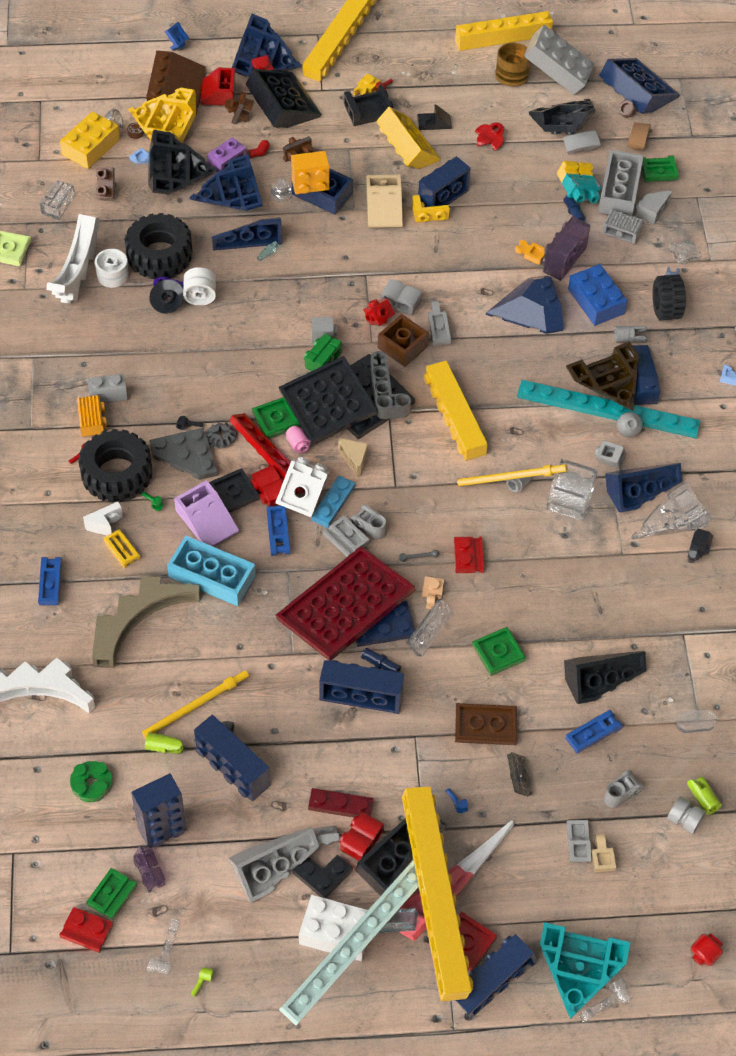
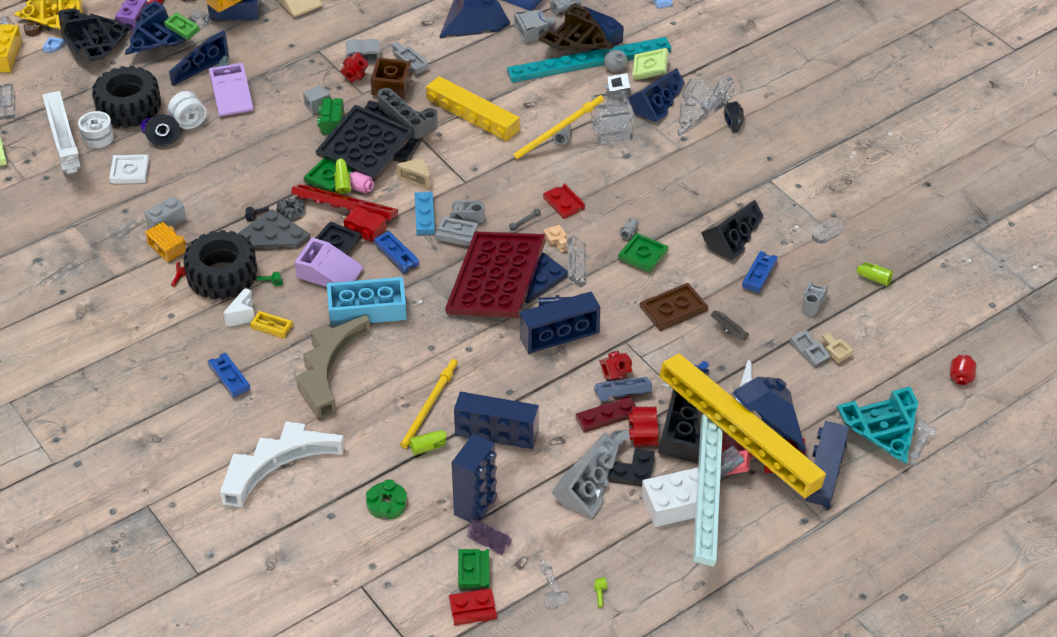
camera: 30 degrees left, 10 degrees down
(105, 183) = (39, 72): reddish brown hips -> none
(115, 322) = (129, 169): none -> white tile
(249, 195) = (182, 26): none -> bright green plate
(253, 282) = (230, 89): none -> lavender slope
(281, 428) = (342, 178): none -> lime hinge
(303, 475) = (395, 197): white bracket -> none
(372, 785) = (622, 387): none -> sand blue plate
(381, 760) = (616, 365): none -> red brick
(481, 889) = (774, 404): none -> dark blue wedge
(502, 619) = (627, 230): none -> light grey pin
(580, 344) = (532, 24): none -> light grey torso
(660, 444) = (650, 64): none -> yellowish green plate
(686, 815) = (874, 290): light grey wheel -> none

